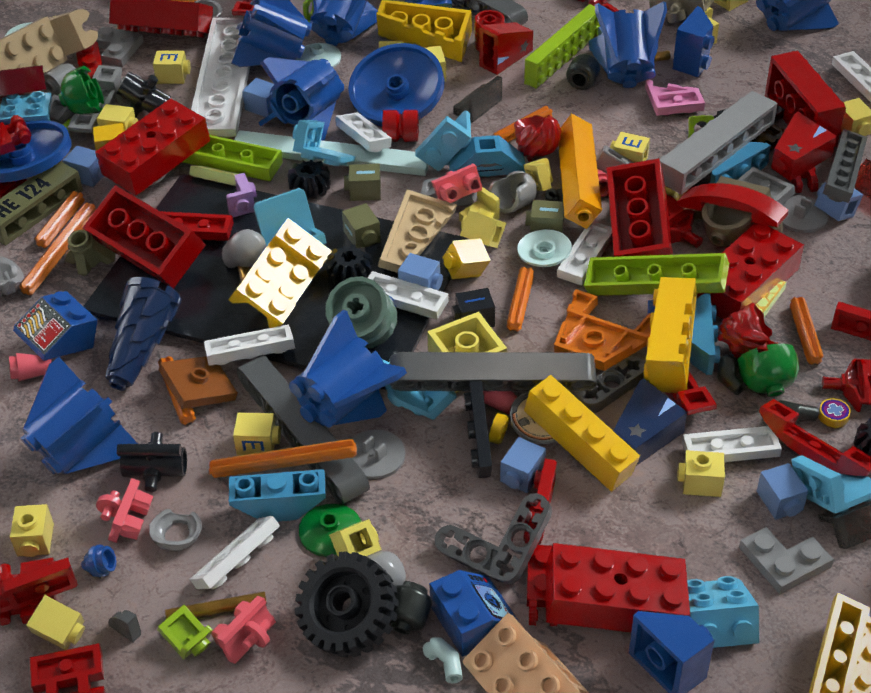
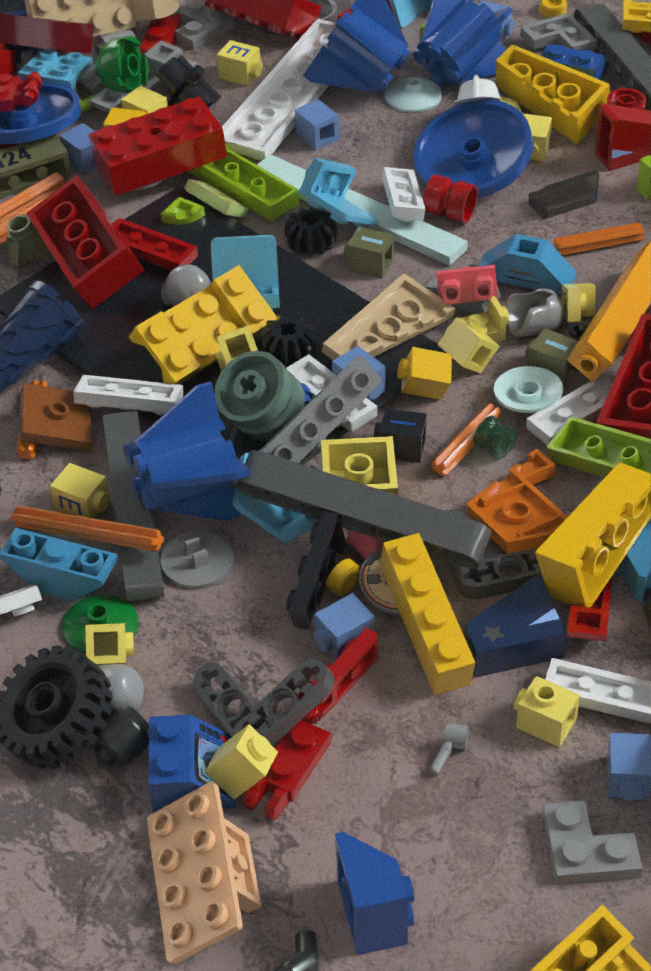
camera: 25 degrees right, 0 degrees up
(199, 193) = (182, 212): none -> lime tile
(243, 200) = (226, 226): lavender bracket -> none
(302, 90) = (356, 129): blue brick -> none
(319, 284) = (234, 344): none -> light yellow brick
(361, 226) = (329, 300): olive brick -> none
(375, 40) = (477, 90): none -> white piece
(422, 308) = (324, 412): none -> light grey bracket
(445, 141) = (483, 229): medium azure bracket -> none
(448, 655) = (135, 805): light aqua arm -> none
(516, 590) = (241, 761): none -> light yellow brick
(537, 135) = (599, 254): red hair -> none
(542, 290) = (495, 437): none -> clear green wheel
(610, 586) = (334, 789): red brick -> none
(649, 516) = (454, 737): none -> light grey hand
(725, 610) = (461, 875): medium azure bracket -> none

